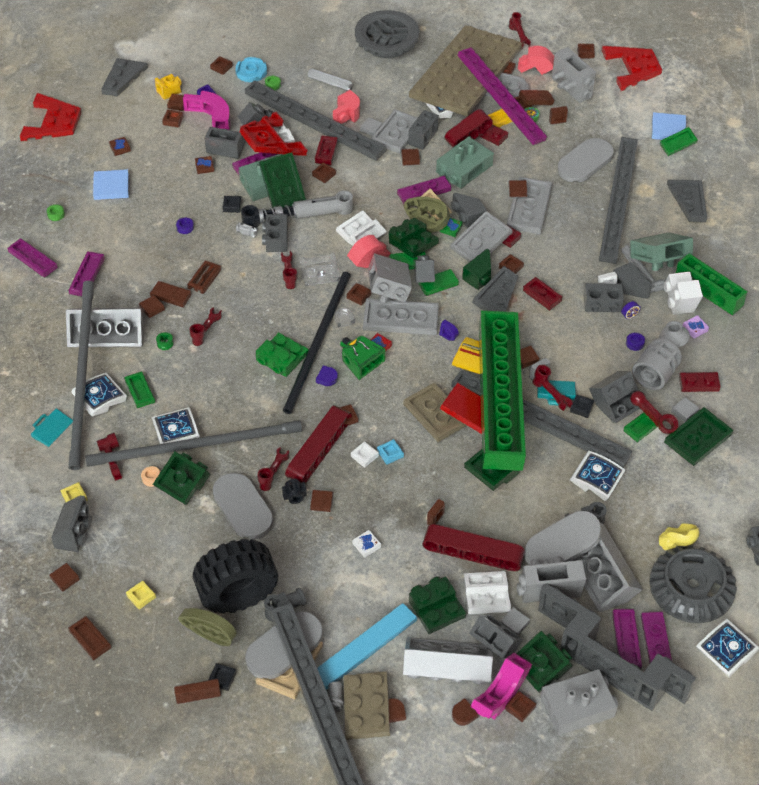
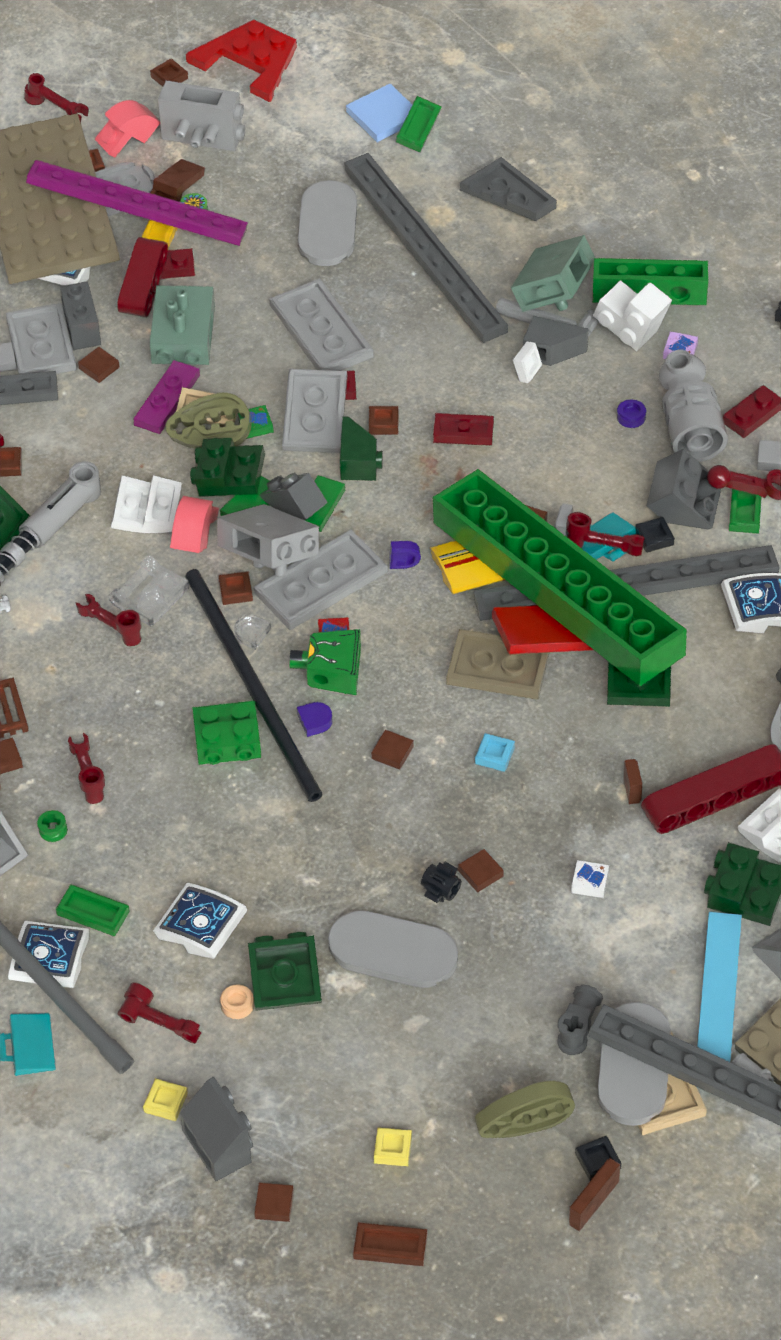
camera: 40 degrees left, 0 degrees up
(102, 458) = (158, 1024): dark grey piece -> none
(235, 576) = (508, 1023): black tyre -> none
(266, 475) = (388, 887): dark red brick -> none
(275, 233) = (40, 583): dark grey brick -> none
(318, 445) = (404, 806): dark red beam -> none
(364, 454) = (468, 778): white tile -> none
(467, 208) = (257, 383): dark grey slope -> none
(497, 292) = (408, 467): dark grey wing -> none
(517, 188) = (290, 314): copper tile -> none
(558, 115) = (233, 184): copper tile -> none
(603, 297) = (542, 384): dark grey brick -> none
(630, 310) = (589, 377): dark purple tile -> none

